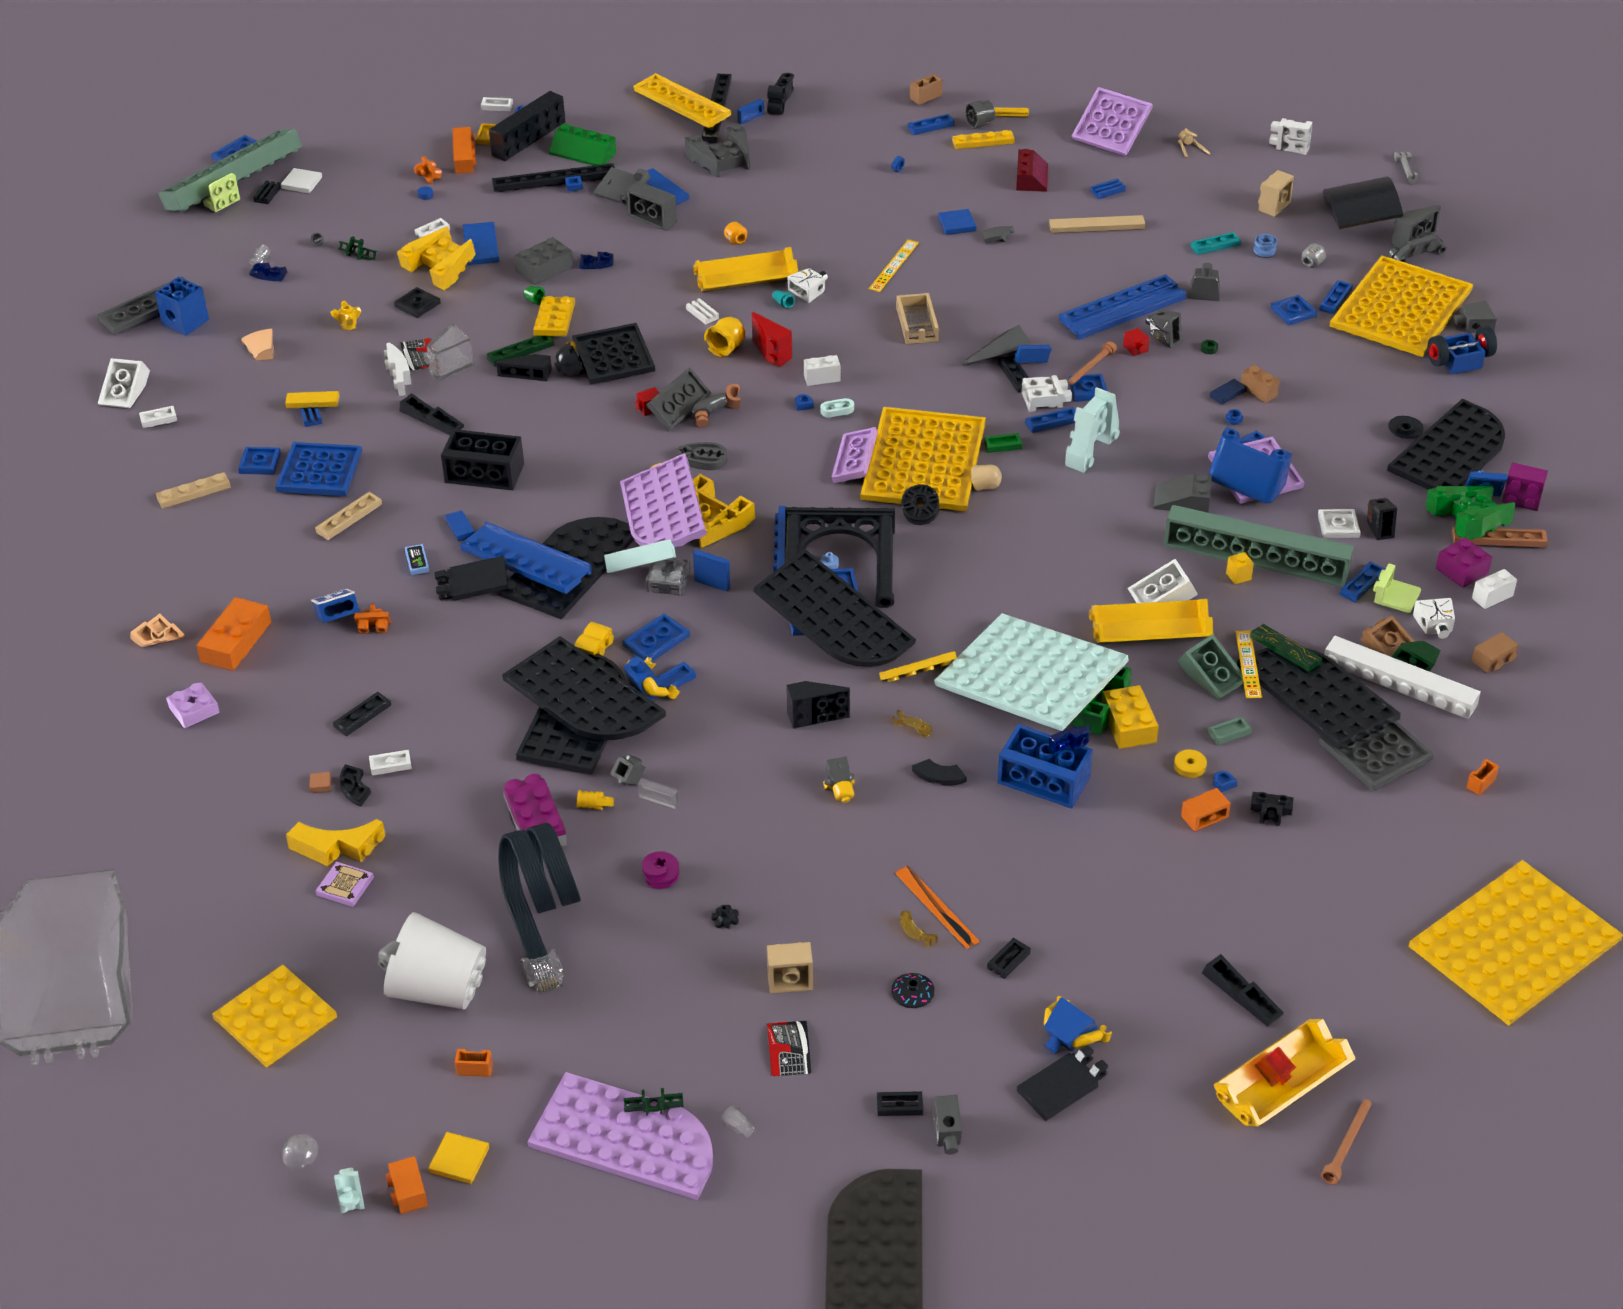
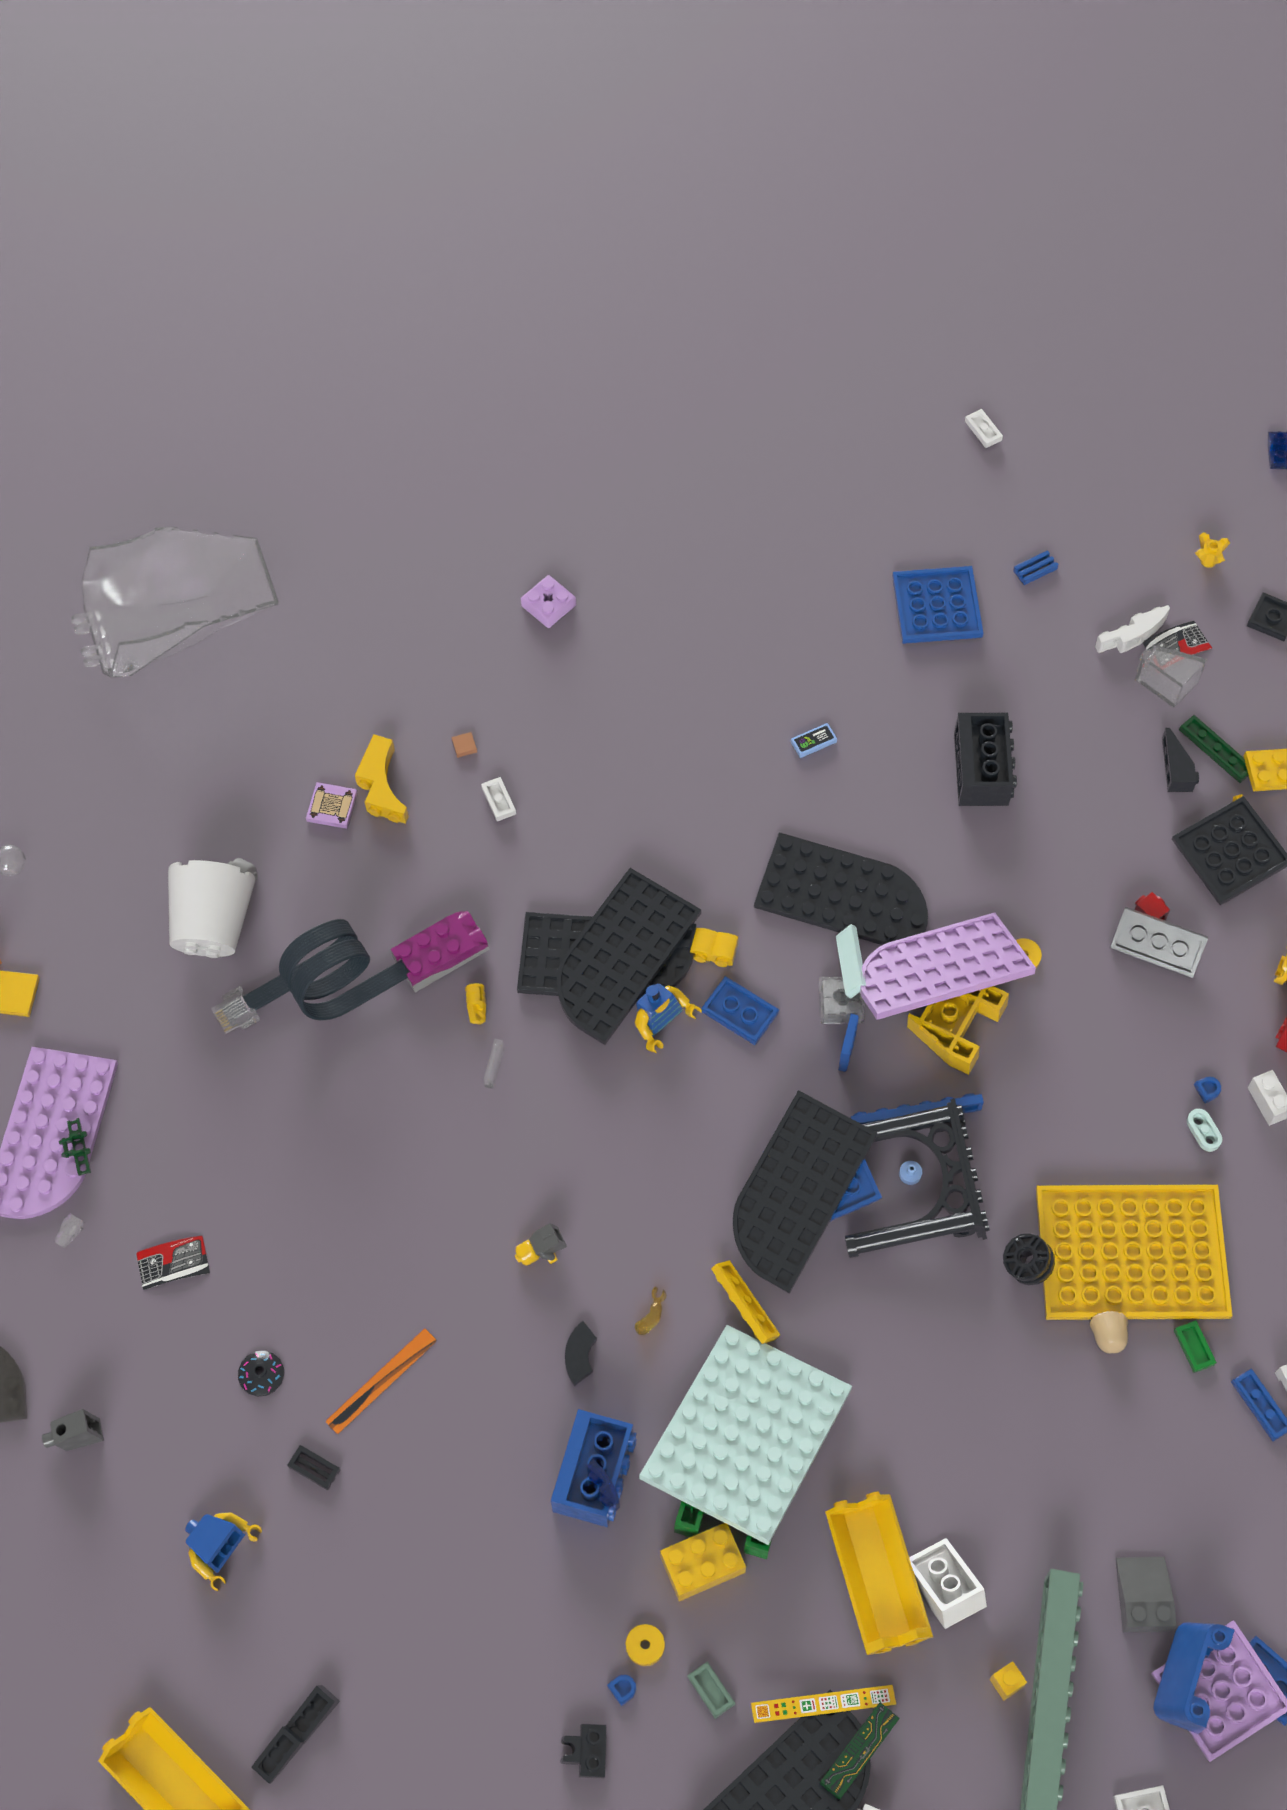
camera: 80 degrees right, 20 degrees up
(123, 383) = (1026, 378): white slope -> none
(131, 312) = (1176, 356): dark grey plate -> none
(155, 632) = (647, 536): light nougat slope -> none
(182, 305) = (1169, 386): blue brick -> none
(193, 490) = (875, 499): tan plate -> none
(234, 633) = (654, 604): orange brick -> none
(259, 460) = (940, 544): blue tile -> none
(260, 344) = (1140, 483): light nougat slope -> none
(274, 1015) = (163, 794): yellow plate -> none
(312, 399) = (1050, 562): yellow tile -> none
(335, 605) = (707, 682): blue piece -> none
(348, 516) = (866, 655): tan plate -> none
(352, 786) = (465, 774): black tile -> none
(362, 713) = (568, 754): black tile -> none
(372, 617) = (700, 717): orange hips -> none
(425, 413) = (1063, 688): black slope -> none
(459, 525) = (880, 767): blue tile -> none
(472, 579) = (785, 803): black tile -> none
(473, 1063) = (117, 973): orange piece -> none
(527, 557) = (828, 845): blue plate -> none
(568, 361) = (1198, 804): black cylinder -> none
(628, 769) = (517, 1025): dark grey brick -> none
(660, 869) = (382, 1079): magenta piece -> none
(676, 676) = (679, 1043): blue tile -> none
(704, 455) = (1059, 995): dark grey piece -> none
(705, 407) = (1154, 974): piece -> none
(725, 916) = (336, 1167): black plant -> none
(790, 967) = (258, 1240): tan brick -> none
(816, 703) = (644, 1184): black slope -> none
(854, 455) = (1109, 1165): lavender plate -> none
(899, 1107) = (111, 1401): black tile -> none
(912, 931) = (340, 1357): clear yellow arm -> none
(1062, 1083) = (146, 1544): black tile -> none
(1093, 422) = (1223, 1447): light aqua wedge -> none
(1205, 809) = (565, 1668): orange brick -> none
(1212, 667) = (810, 1657): sand green slope -> none
(1275, 1067) = (175, 1774): clear red brick -> none

